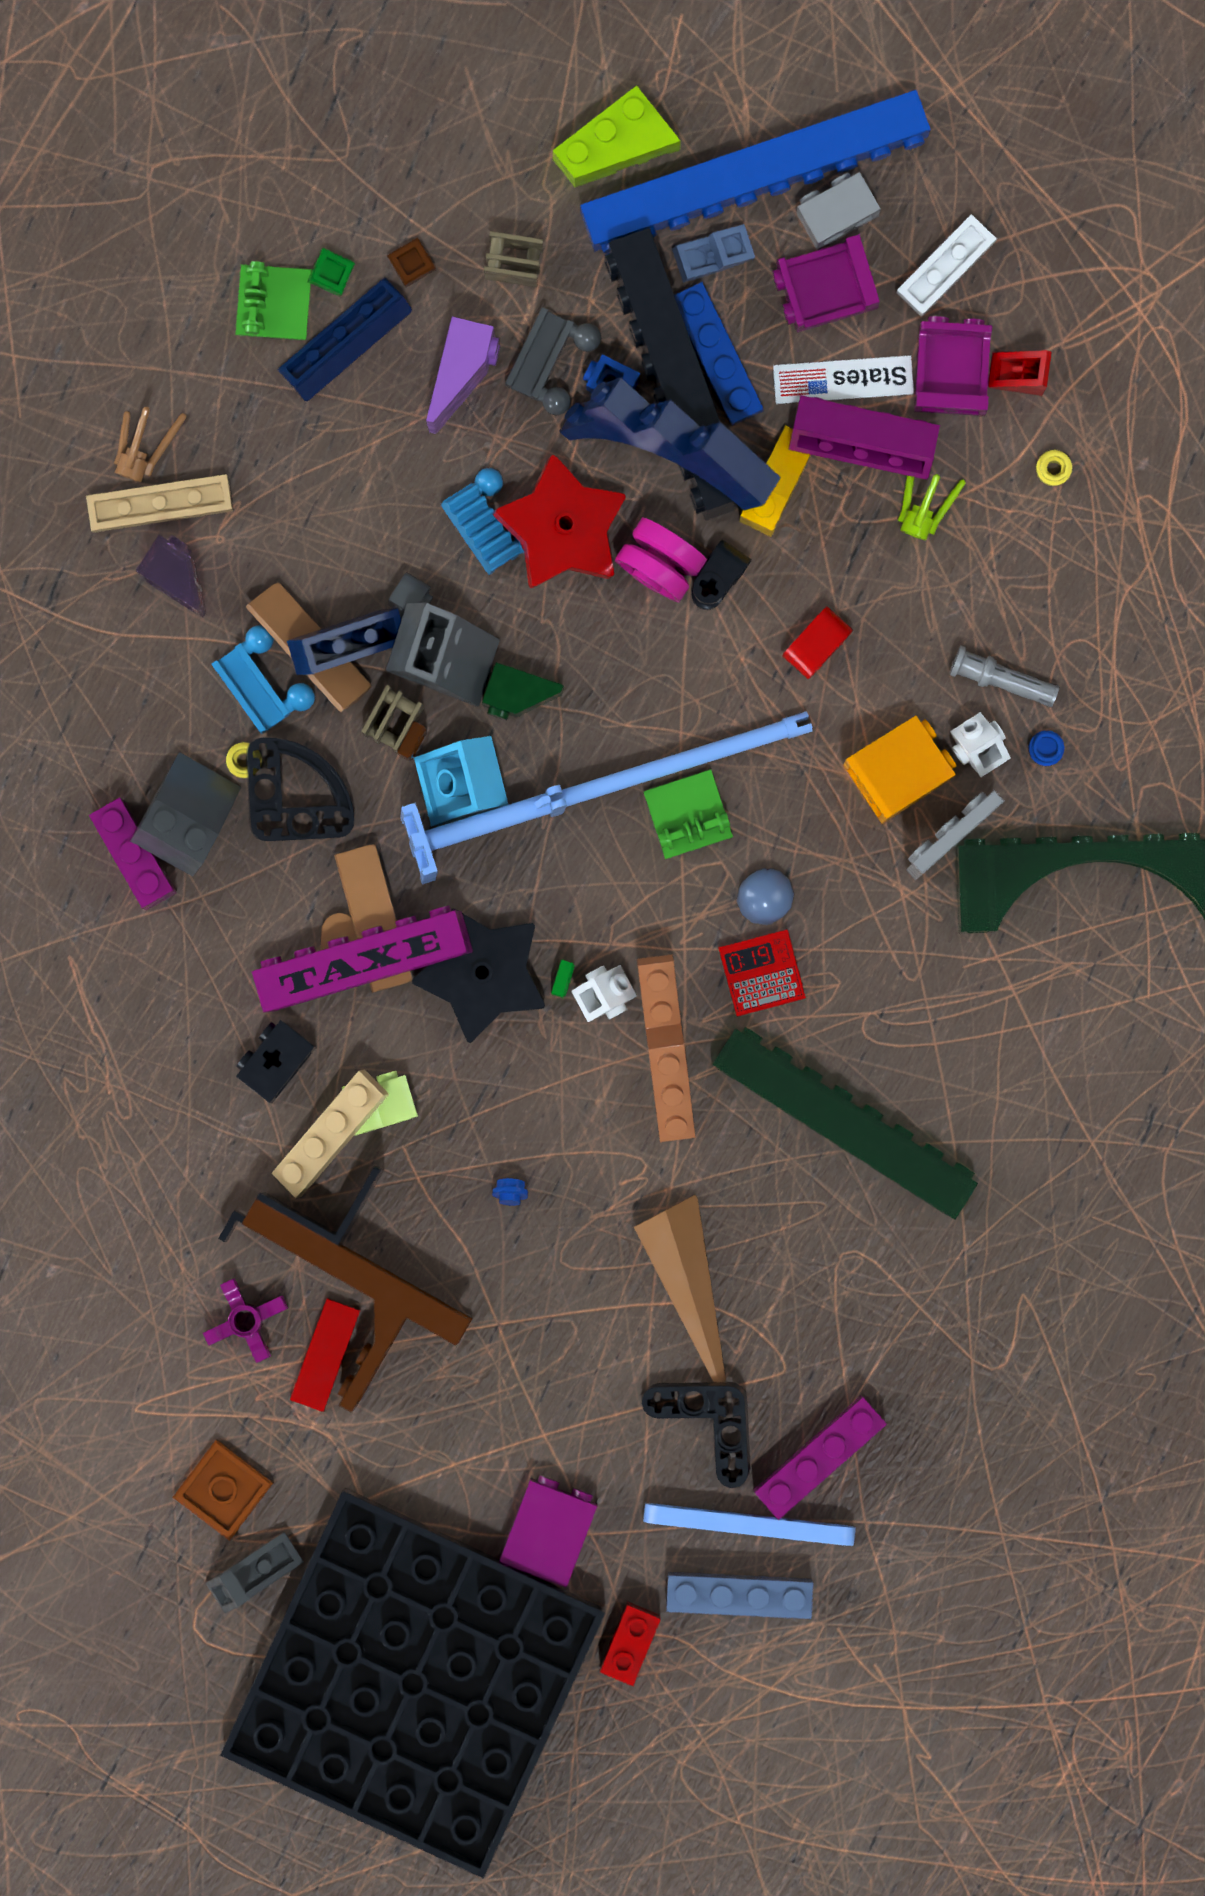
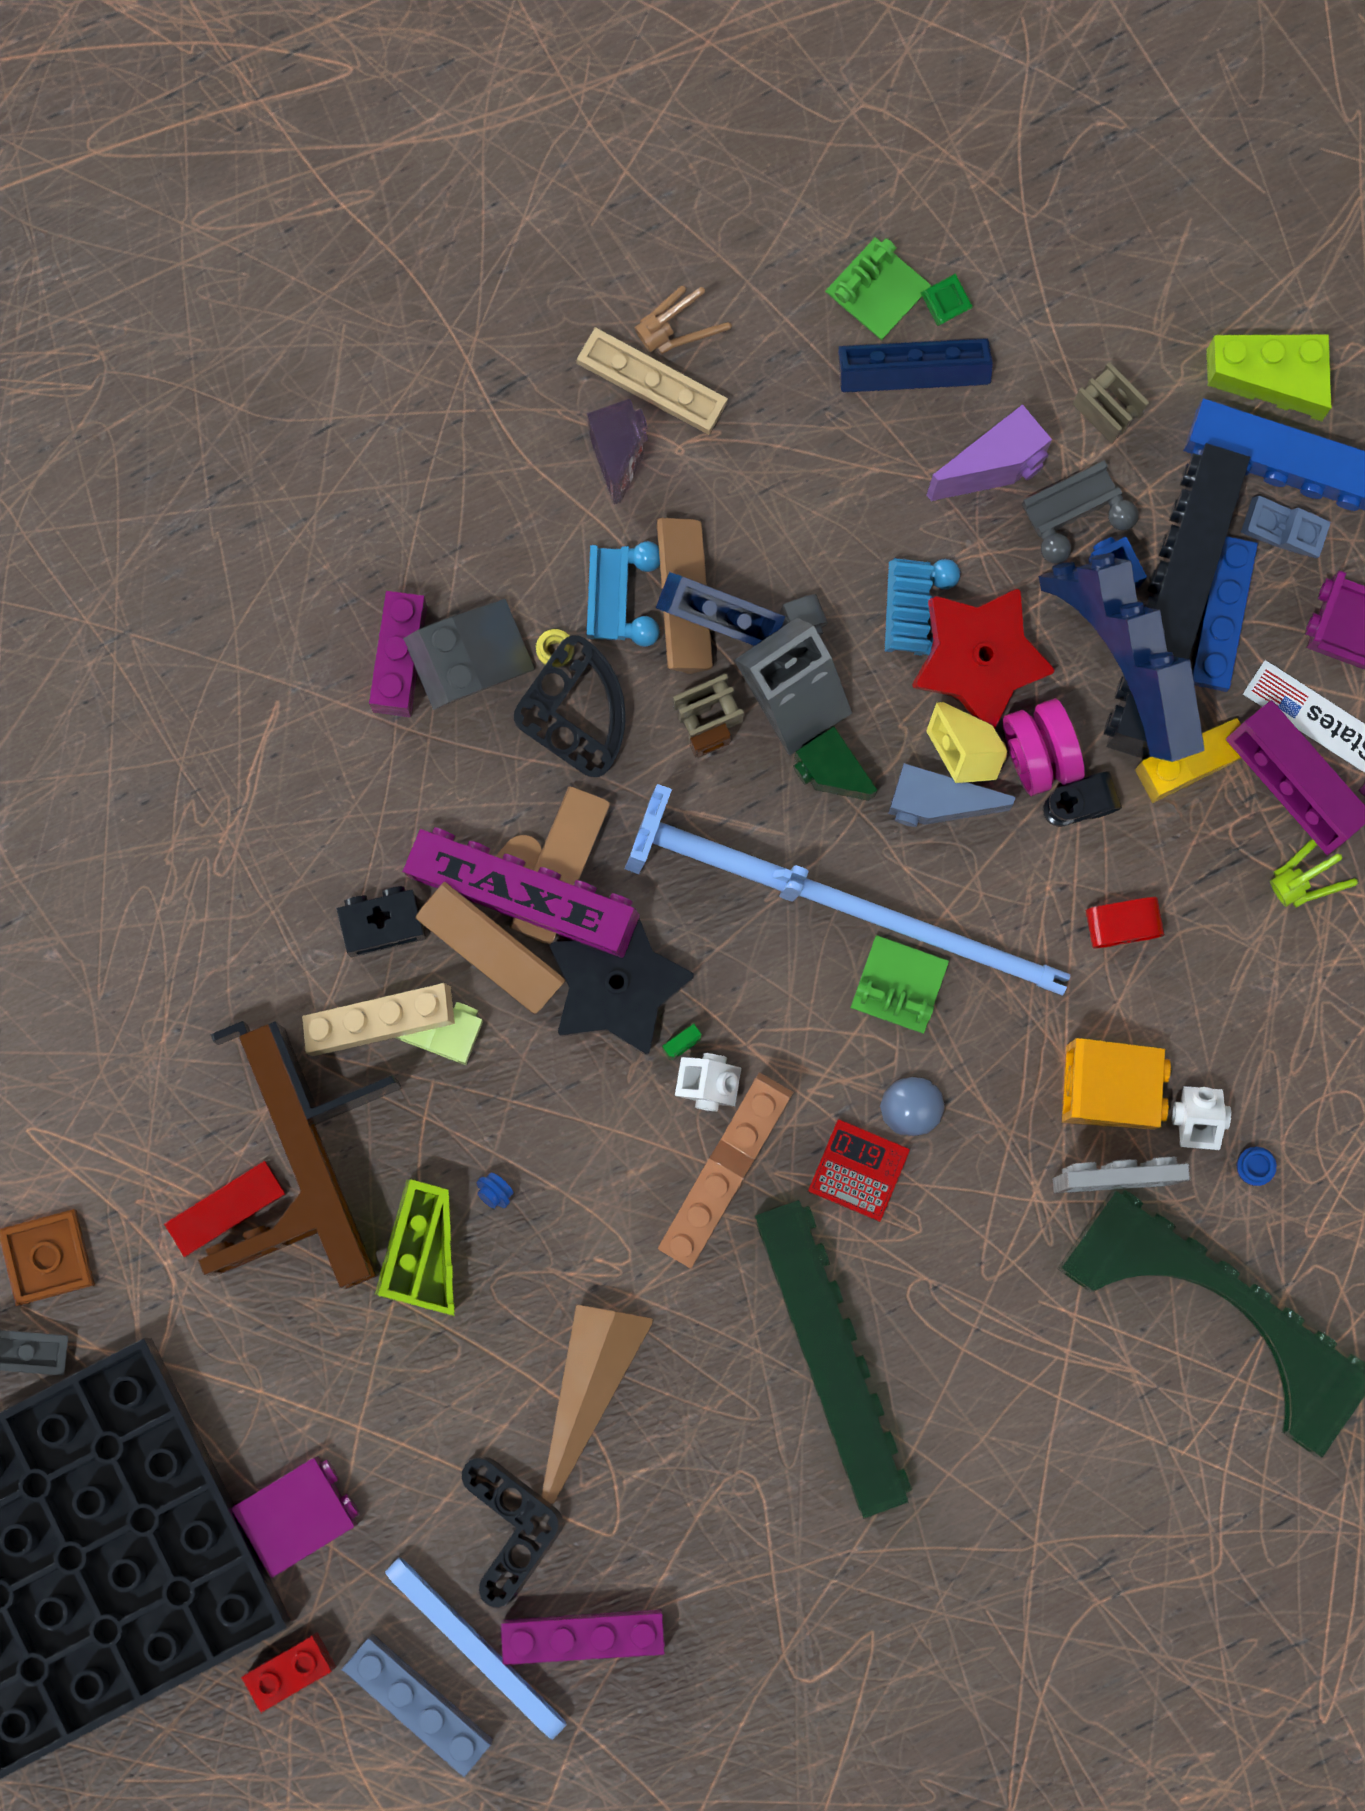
camera: 30 degrees right, 5 degrees down
(253, 1337) = (175, 1145): magenta pin -> none
(370, 1019) = (489, 948): none -> medium nougat slope
(411, 262) = (1020, 343): reddish brown tile -> none
(461, 780) = (727, 804): medium azure slope -> none
(490, 1276) = (419, 1250): none -> lime wedge
(602, 600) = (966, 744): none -> light yellow slope
(609, 657) = (936, 798): none -> sand blue slope
(987, 673) = (1256, 1062): light grey pin -> none

